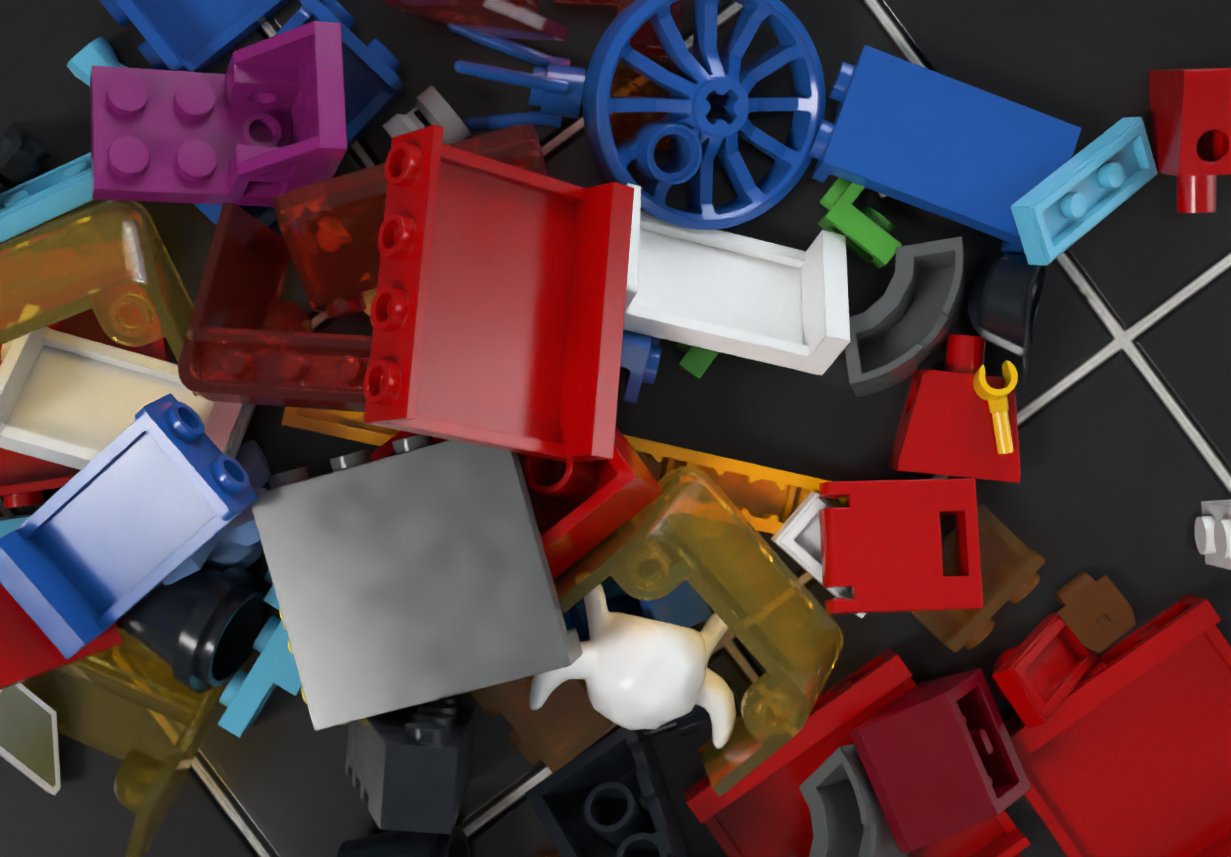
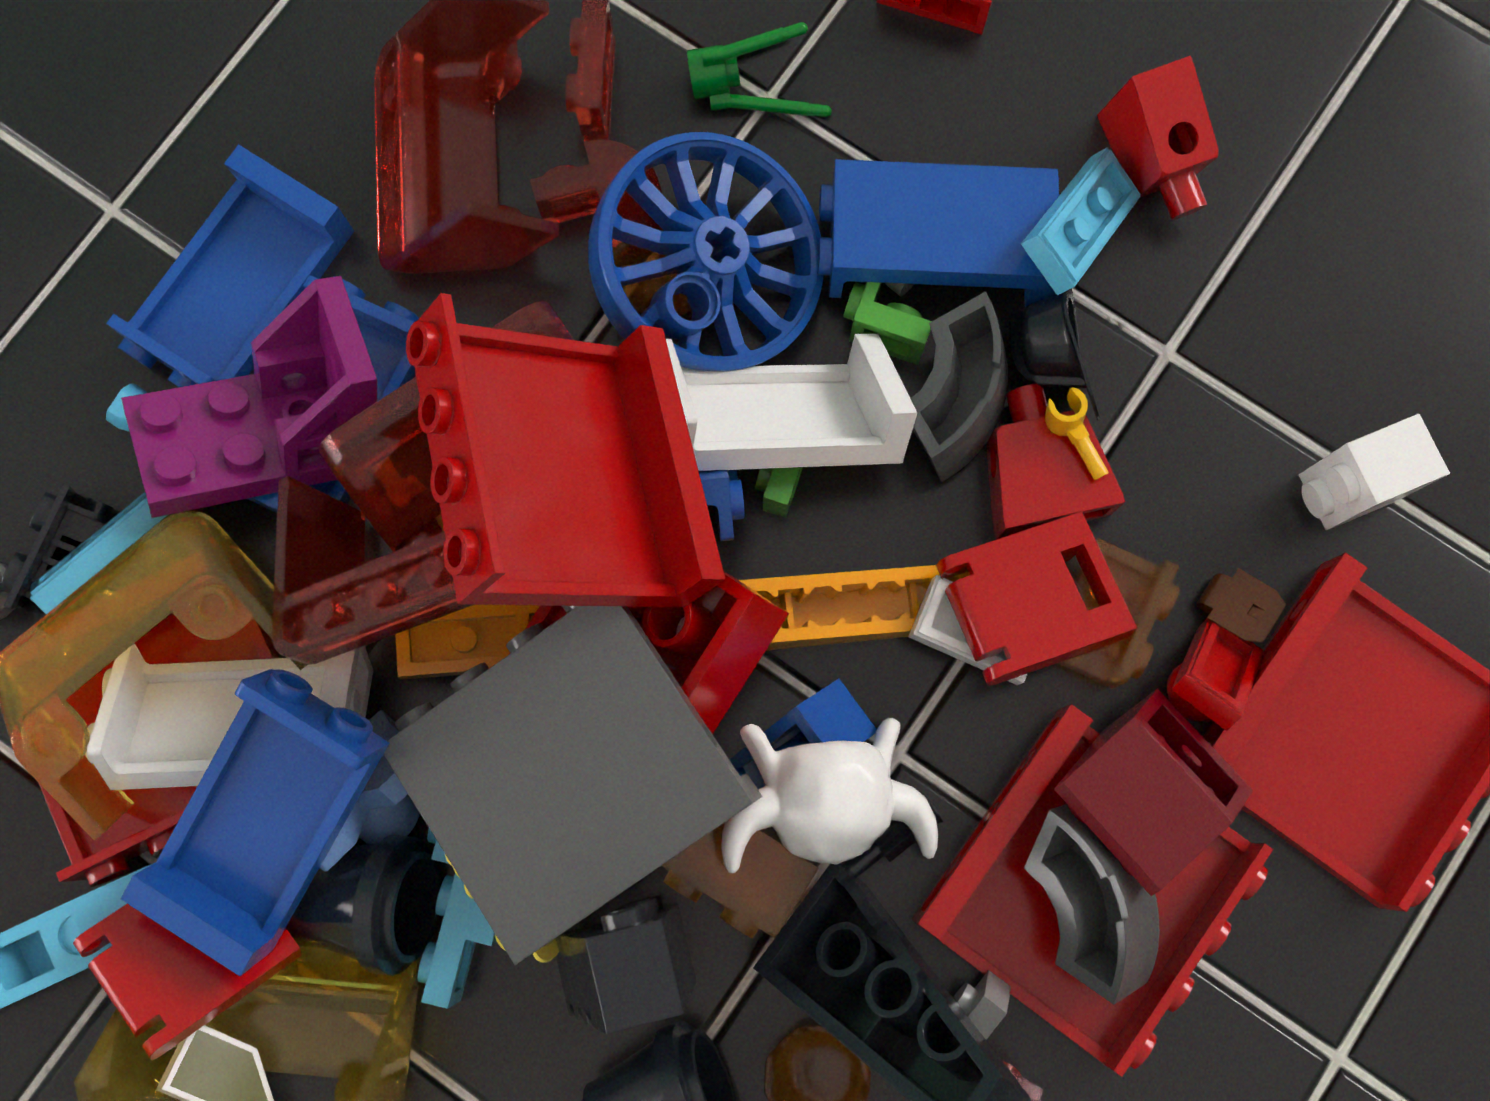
camera: 15 degrees left, 10 degrees down
(553, 87) = (566, 290): blue plant -> none
(707, 540) = (837, 645): clear yellow windscreen -> none

